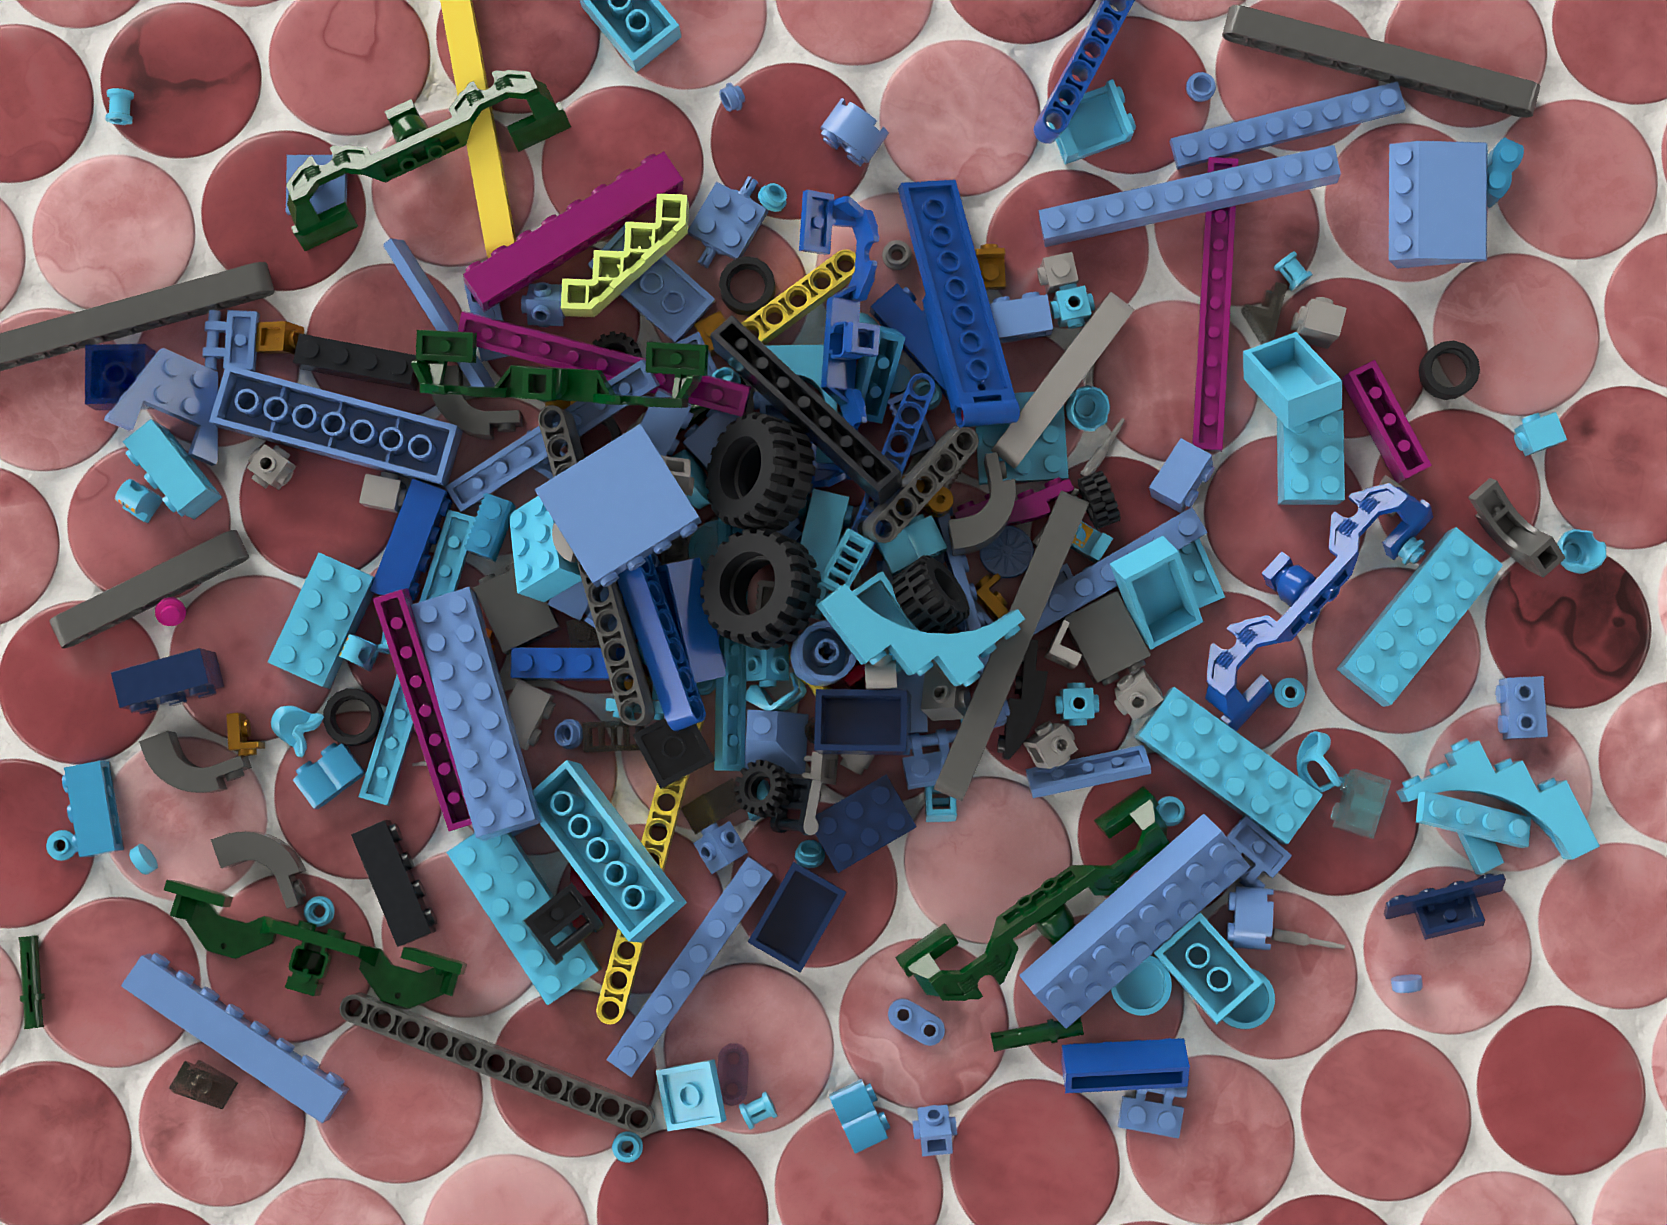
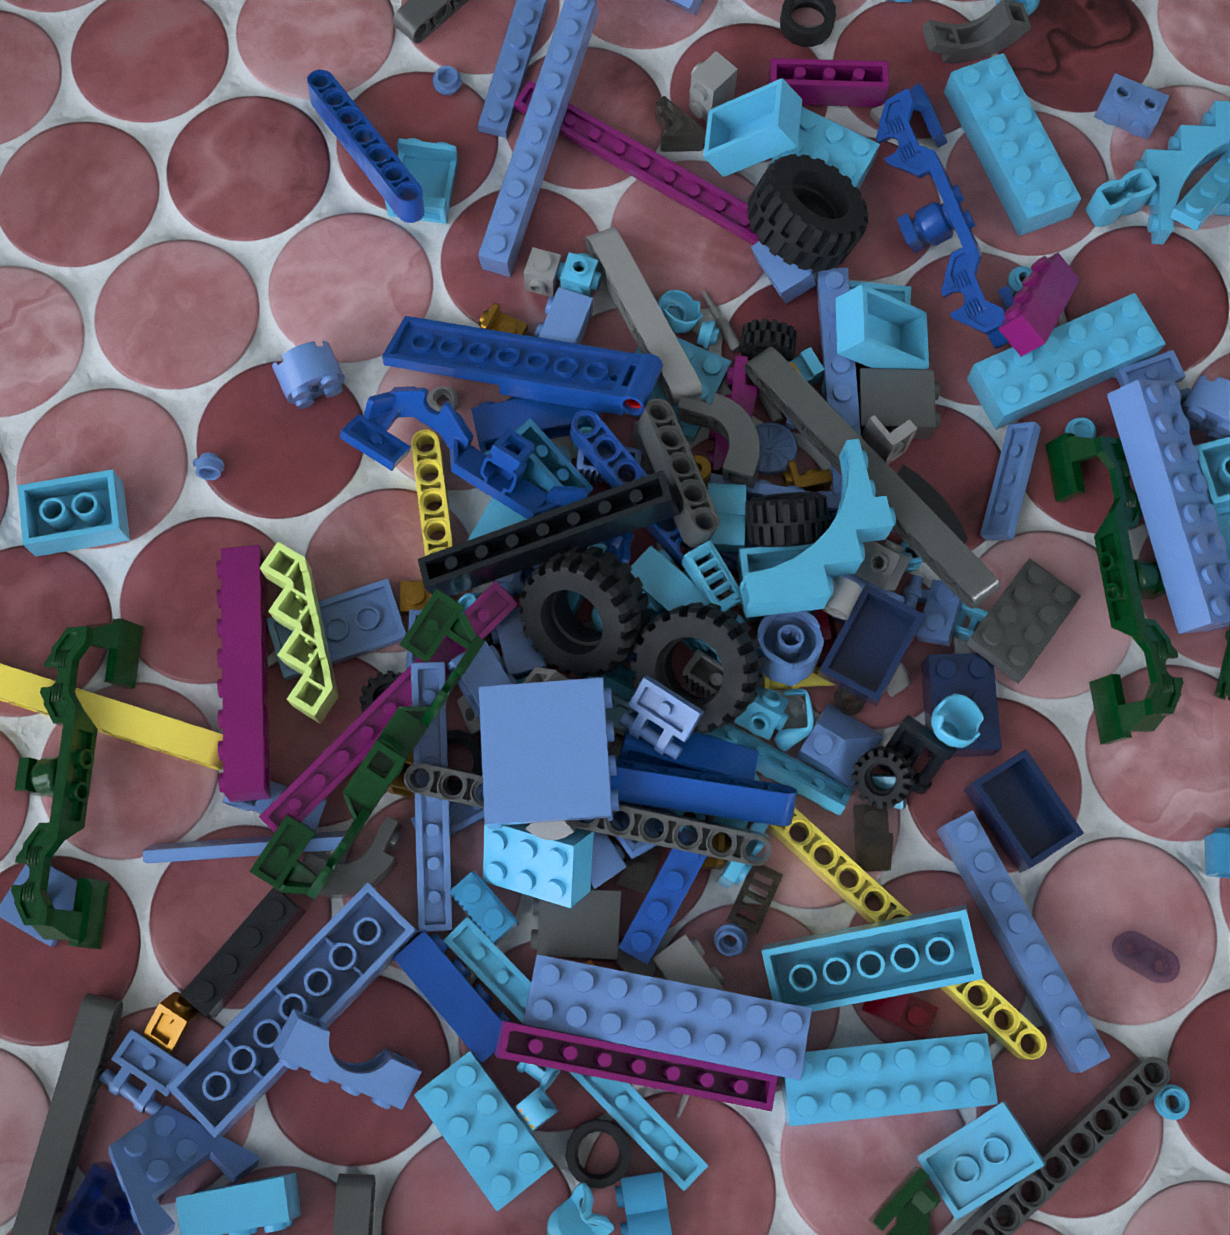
camera: 65 degrees left, 10 degrees down
(278, 473) = (309, 1100): light grey brick -> none
(320, 523) = (385, 1077): none -> medium blue arch
(383, 492) = (389, 996): light grey brick -> none
(394, 883) = (791, 1201): black brick -> none
(499, 1013) = (981, 1160): none -> medium azure plate
(543, 305) = (298, 737): medium blue brick -> none
(558, 914) = (915, 1044): black plate -> none
(672, 752) = (807, 843): black plate -> none
(691, 1095) = (1151, 1008): medium azure plate -> none
(708, 581) = (666, 710): none -> medium blue plate
(719, 846) = (918, 849): medium blue brick -> none
(727, 221) = (321, 531): medium blue plate -> none
(734, 267) = (382, 523): black tyre -> none
(758, 1110) = (1193, 950): medium azure bush -> none
(772, 197) = (324, 478): medium azure plate -> none
(810, 854) = (965, 769): medium azure plate -> none
(822, 767) = (889, 714): light grey tile -> none
(833, 822) = (957, 721): none -> medium azure hair
(916, 1022) = (1173, 755): medium blue plate -> none
(963, 840) = (1023, 620): none -> dark grey plate
(1051, 745) = (972, 498): light grey brick -> none
(1066, 709) = (944, 457): medium azure brick -> none
(1081, 445) = (708, 334): none -> medium azure plate
(1137, 695) = (963, 401): light grey brick -> none
(1260, 714) = (1038, 304): none -> magenta brick
(1263, 476) = (807, 212): none -> black tyre
(1293, 271) = (651, 89): medium azure bush -> none
(1313, 749) = (1090, 281): medium azure piece -> none
(1360, 803) = (1154, 270): clear light blue brick -> none
(1412, 551) = (949, 121): medium azure plate -> none
(1412, 735) = (1120, 197): none -> medium azure brick

